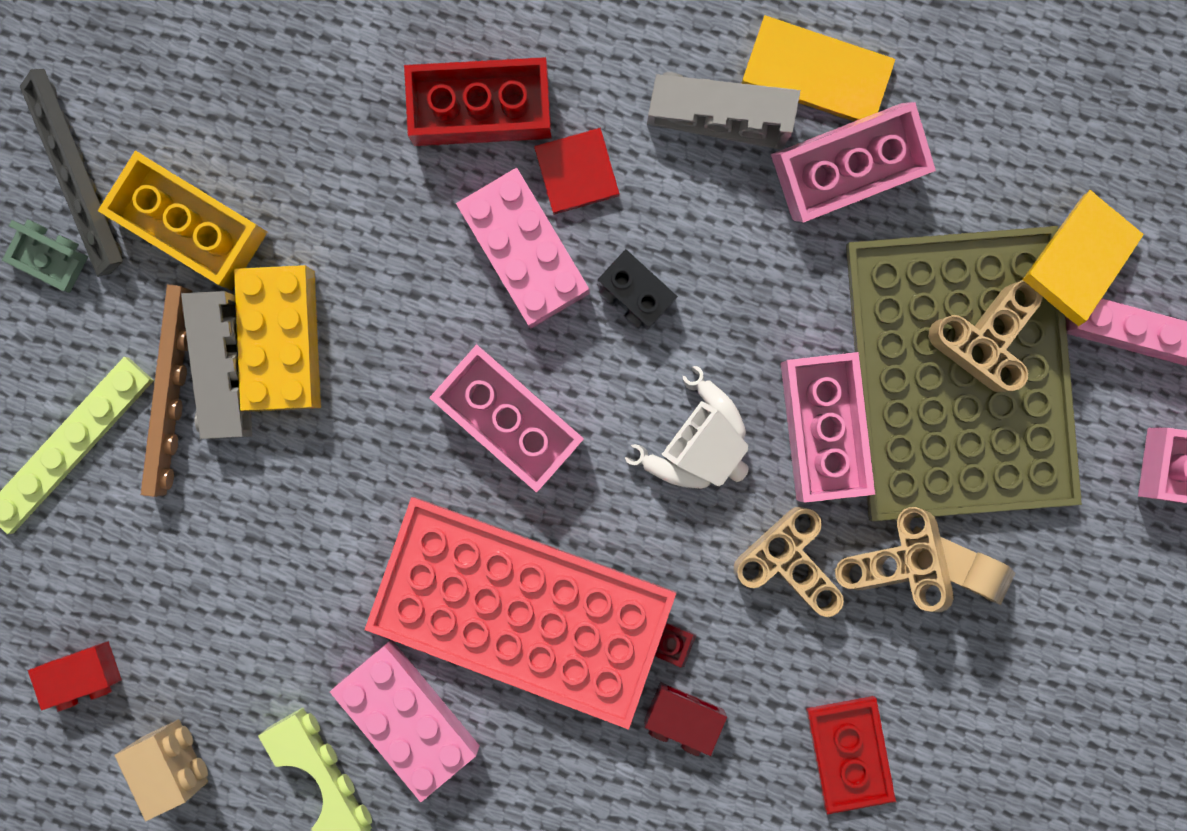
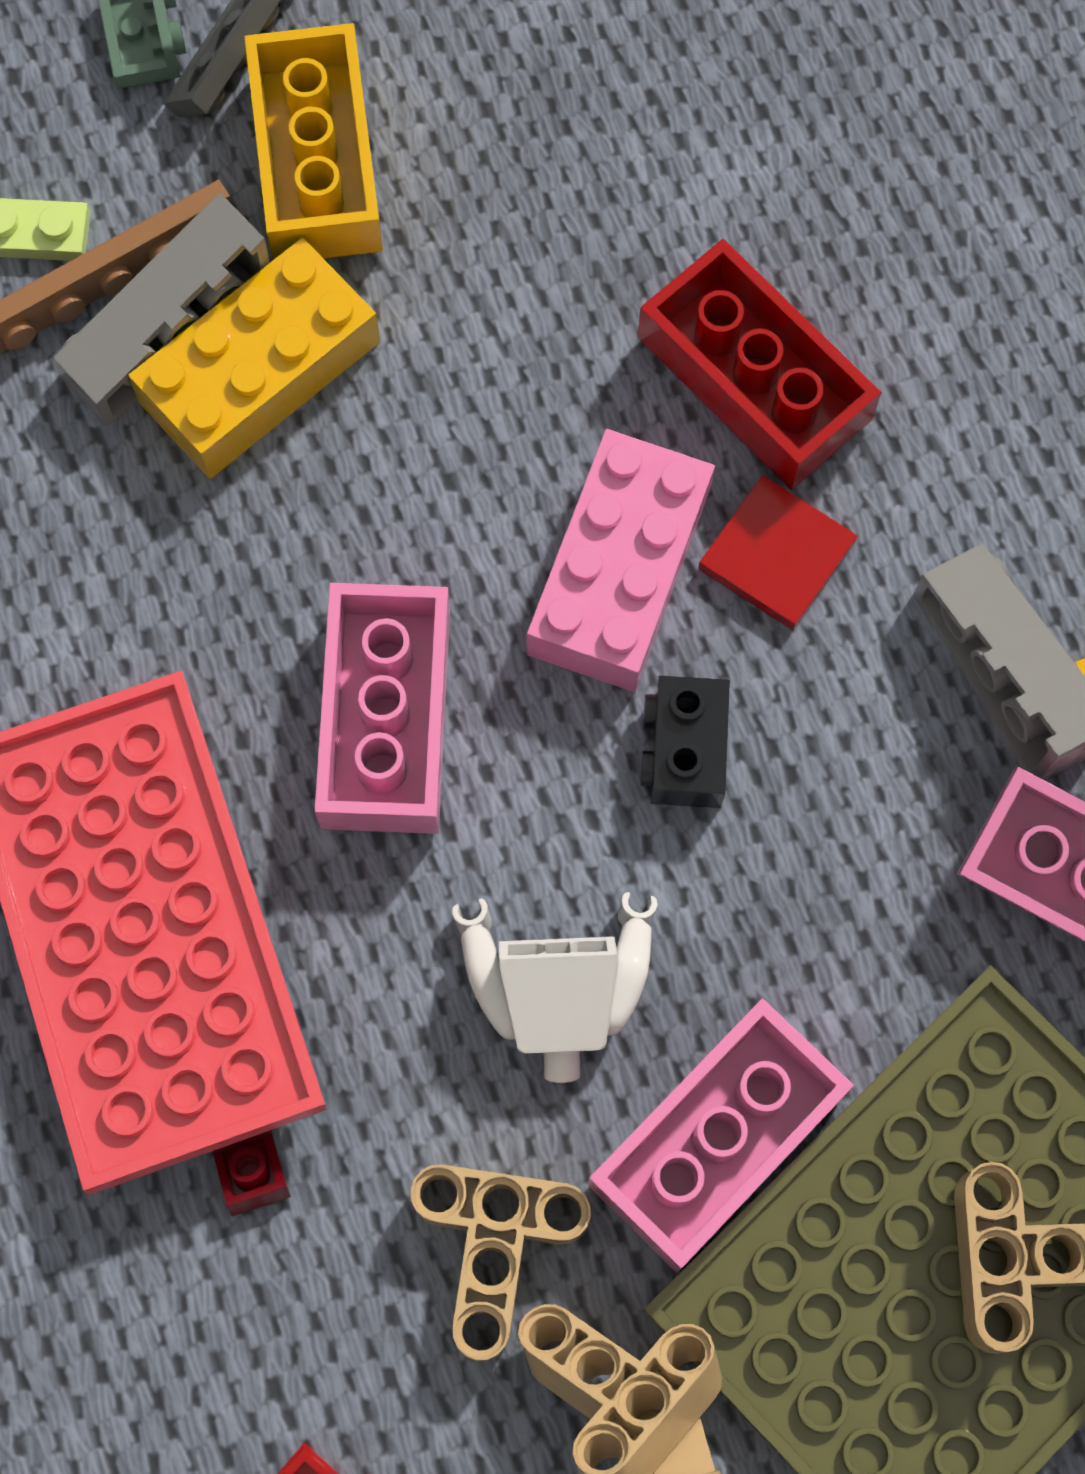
camera: 45 degrees right, 15 degrees down
(684, 720) = (155, 1272): dark red brick -> none

